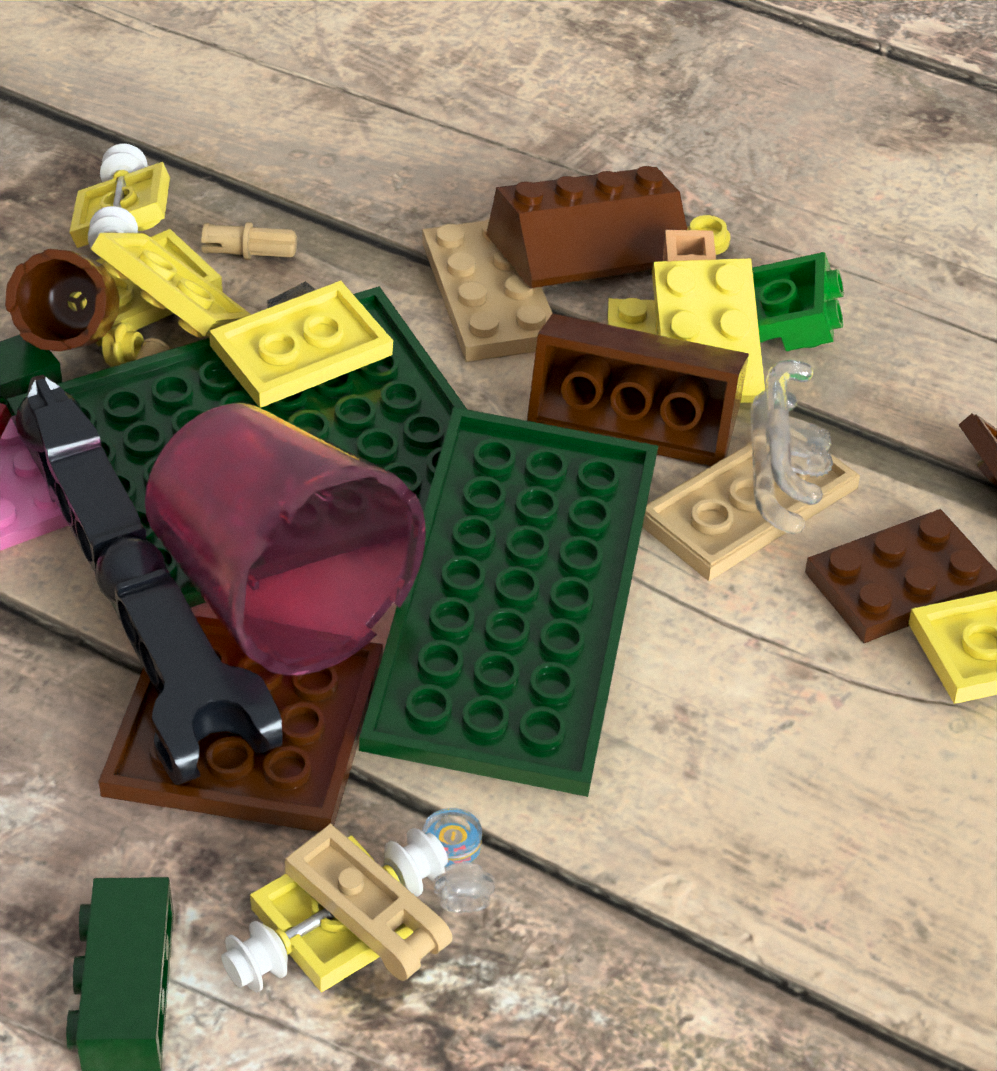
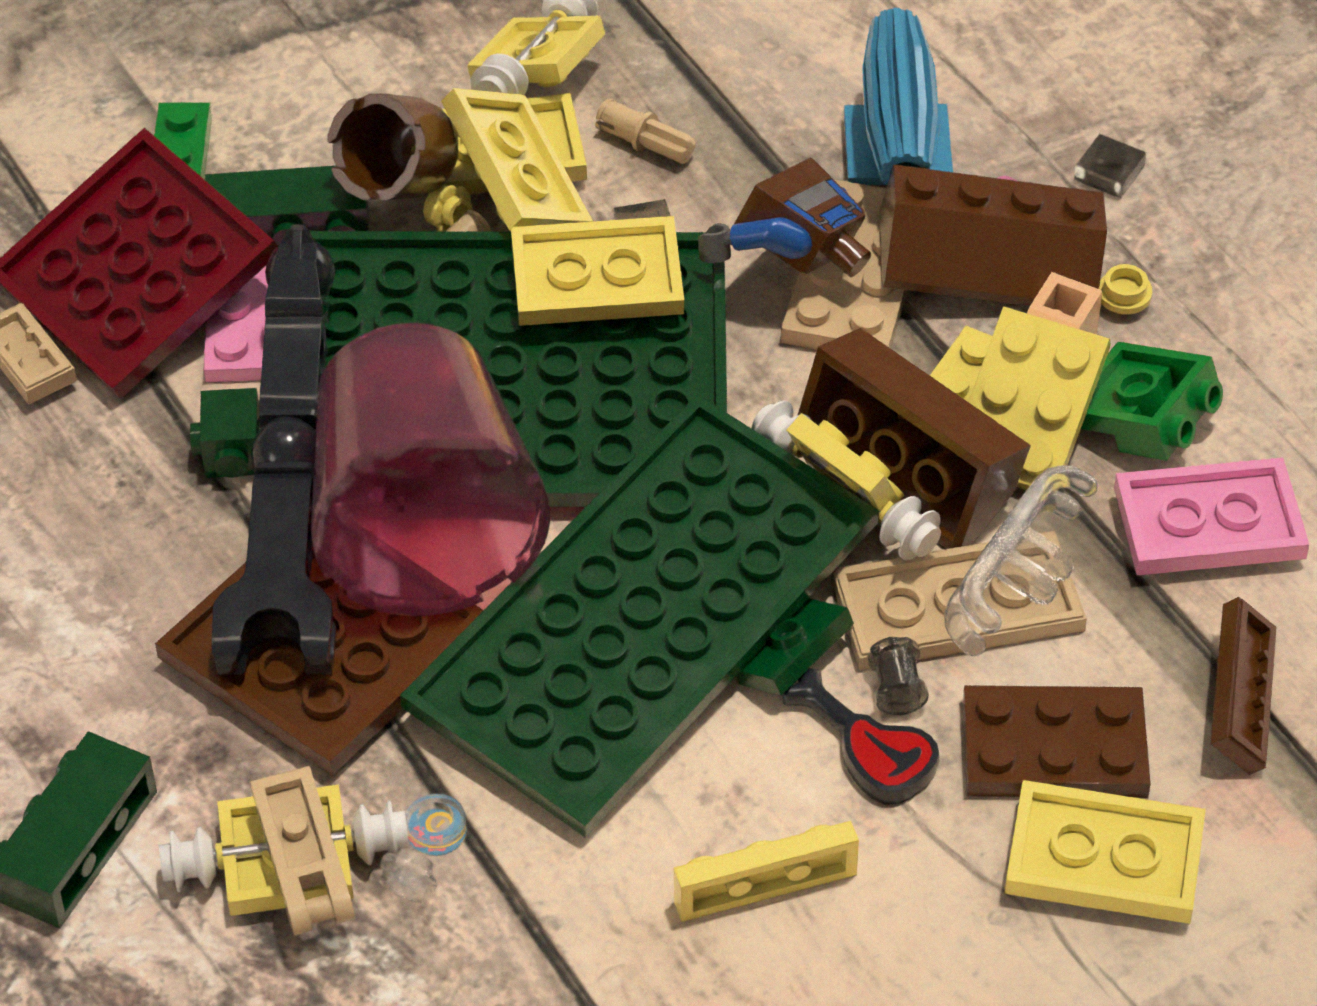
camera: 30 degrees right, 5 degrees up
(49, 583) = (226, 431): none -> dark green brick
(441, 253) = (799, 219): none -> torso
(462, 155) = (900, 106): none -> dark azure plate
(627, 153) = (1110, 166): none -> clear smoke plate
(630, 419) = (862, 475): none -> plate
(656, 578) = (796, 646): none -> dark green plate
(752, 569) = (897, 675): none -> clear smoke bush
(762, 760) = (765, 870): none -> light yellow plate
(782, 638) = (882, 759): none -> black piece
(894, 370) = (1210, 516): none -> bright pink plate

